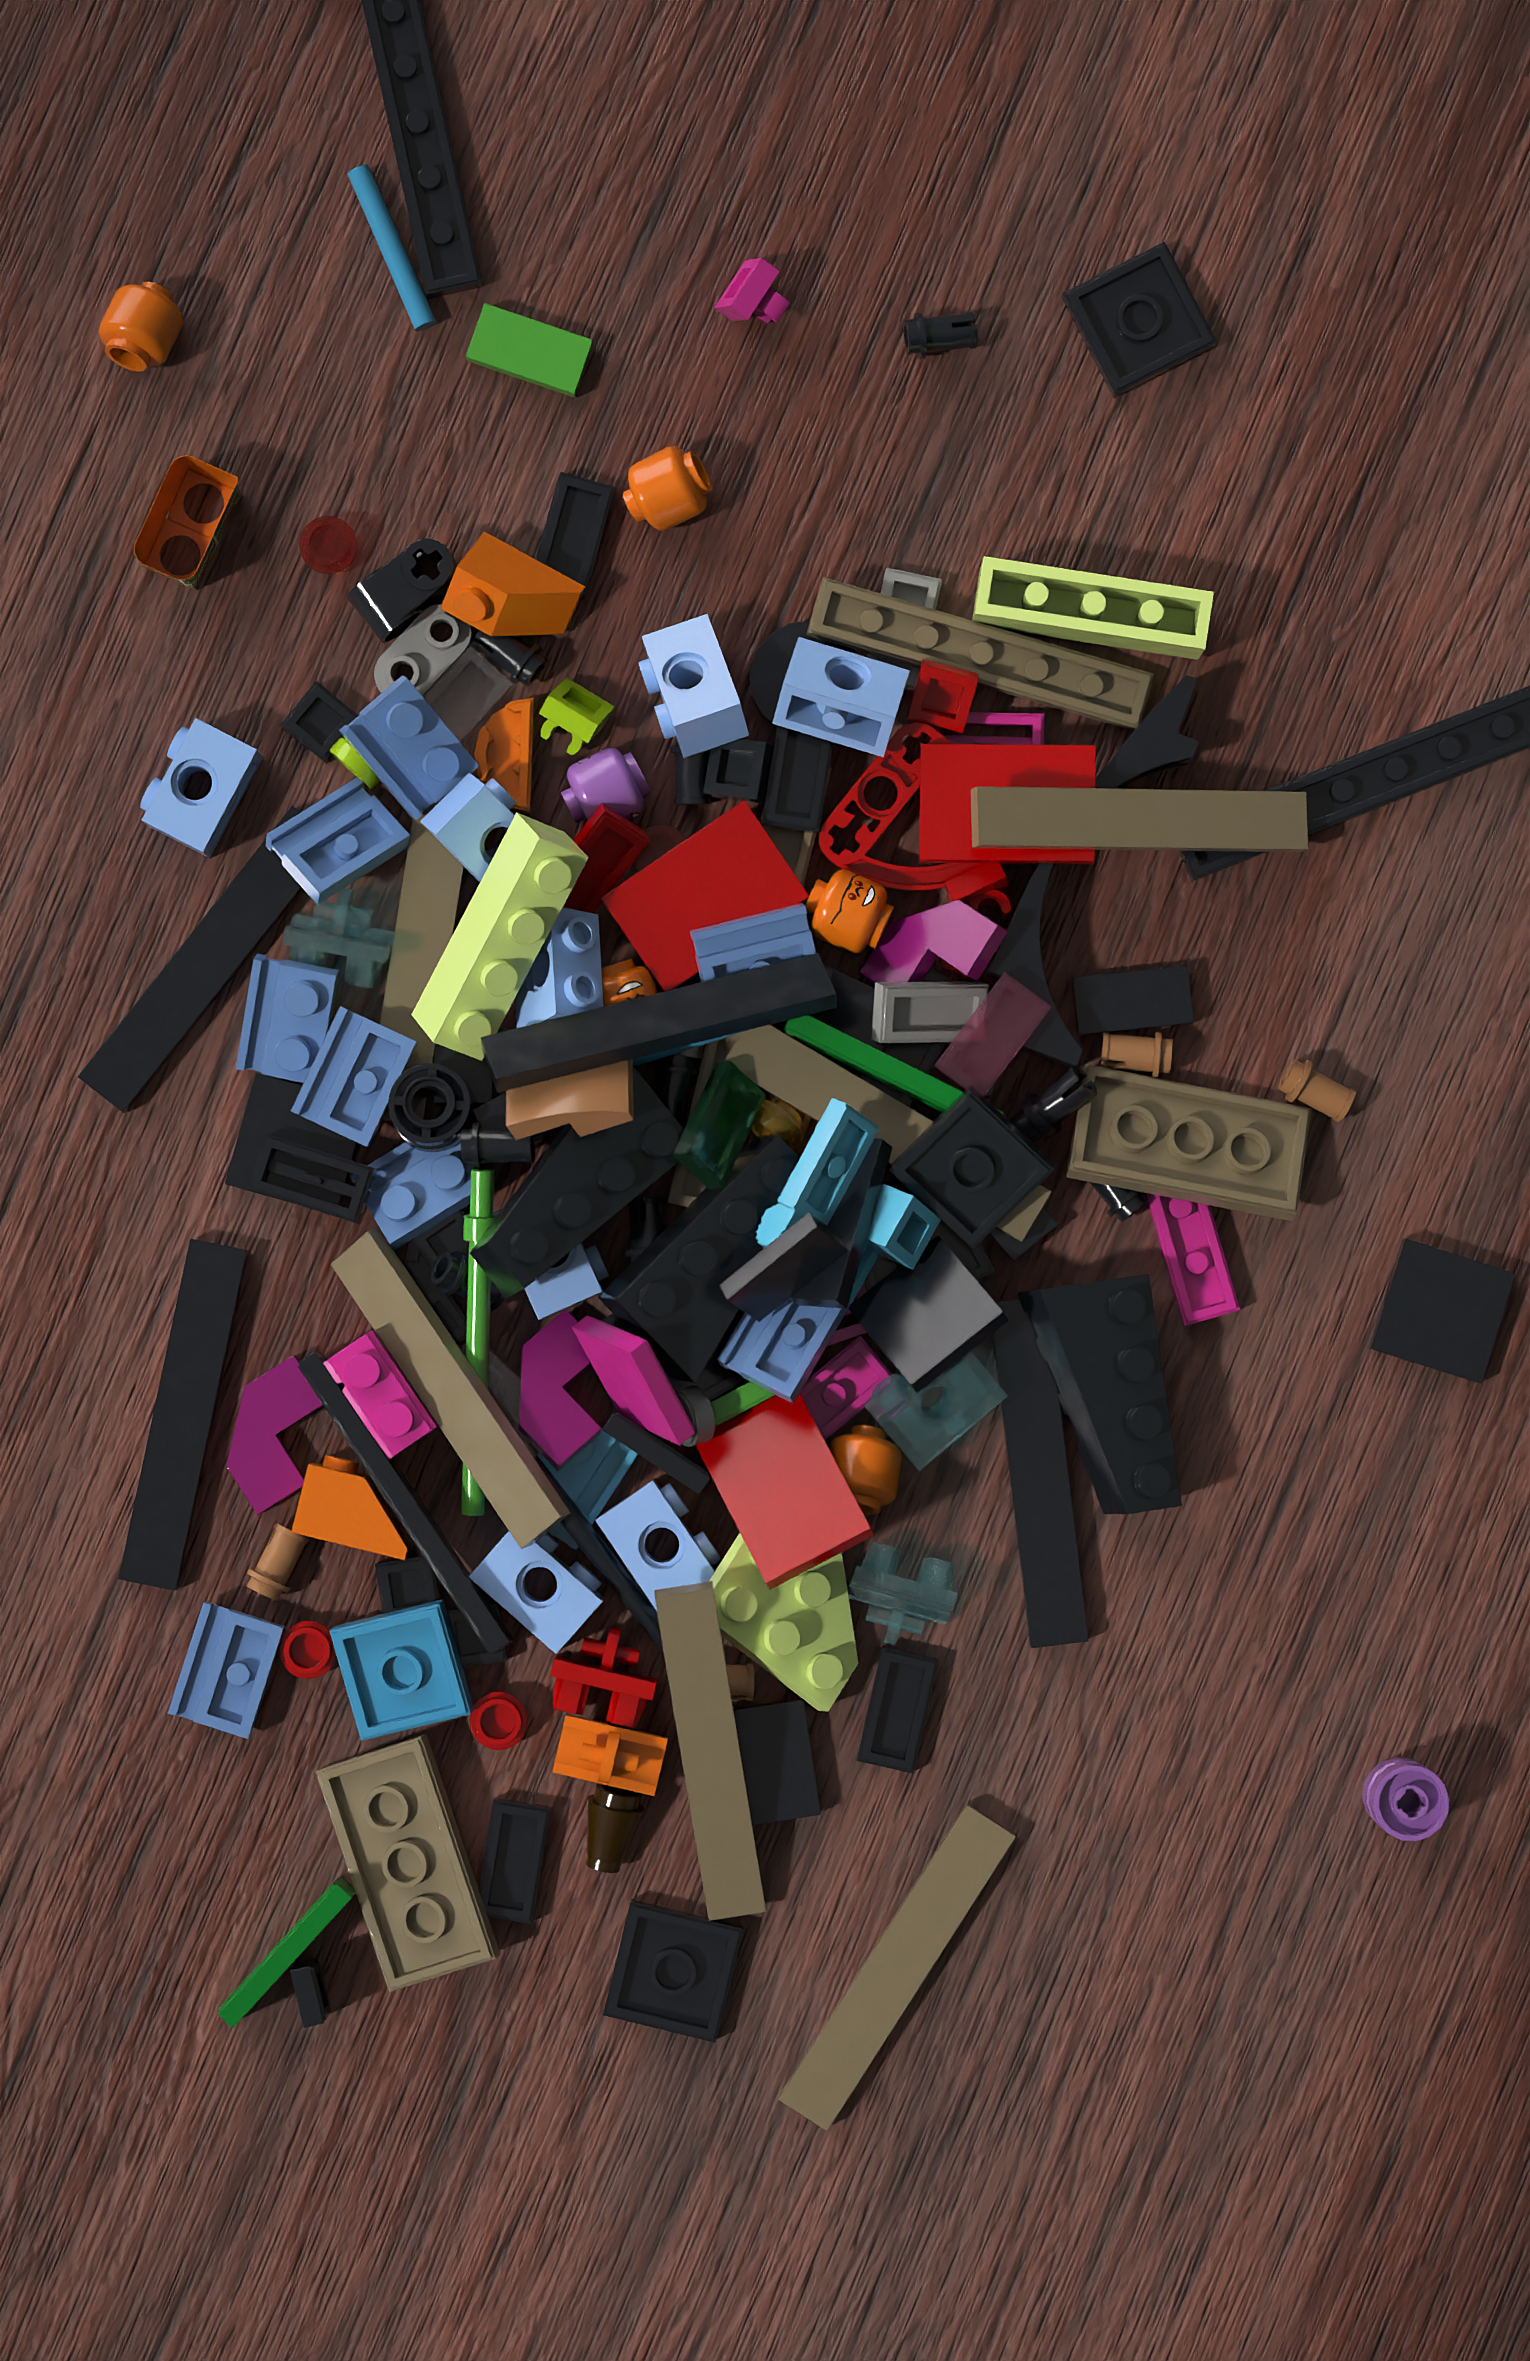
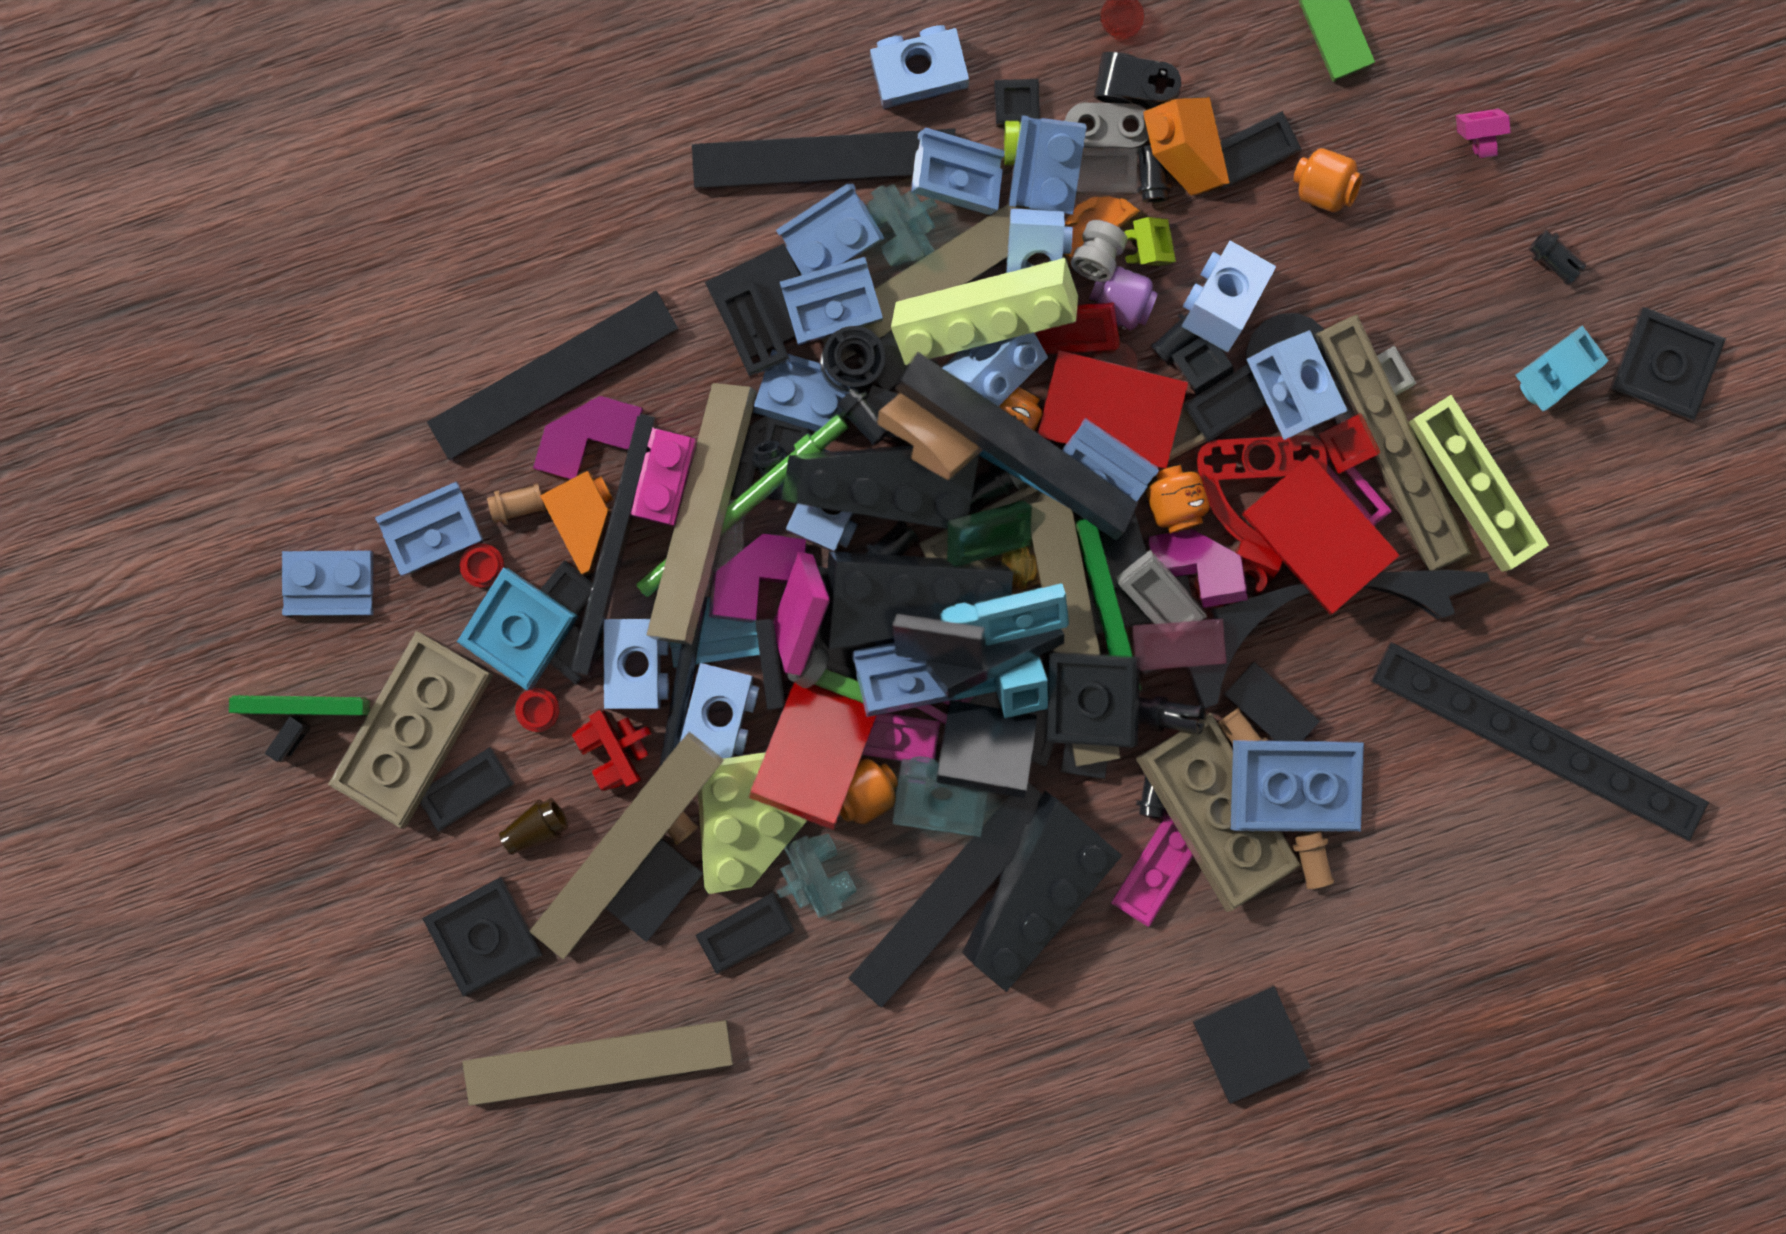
camera: 55 degrees right, 0 degrees up
(190, 1817) = (327, 583): none -> medium blue plate
(539, 774) = (1098, 253): none -> light grey wheel
(610, 1755) = (573, 790): orange hips -> none
(1052, 427) = (1561, 369): none -> medium azure brick
(1138, 819) = (1379, 618): dark tan tile -> none
(1230, 1043) = (1296, 785): none -> medium blue tile

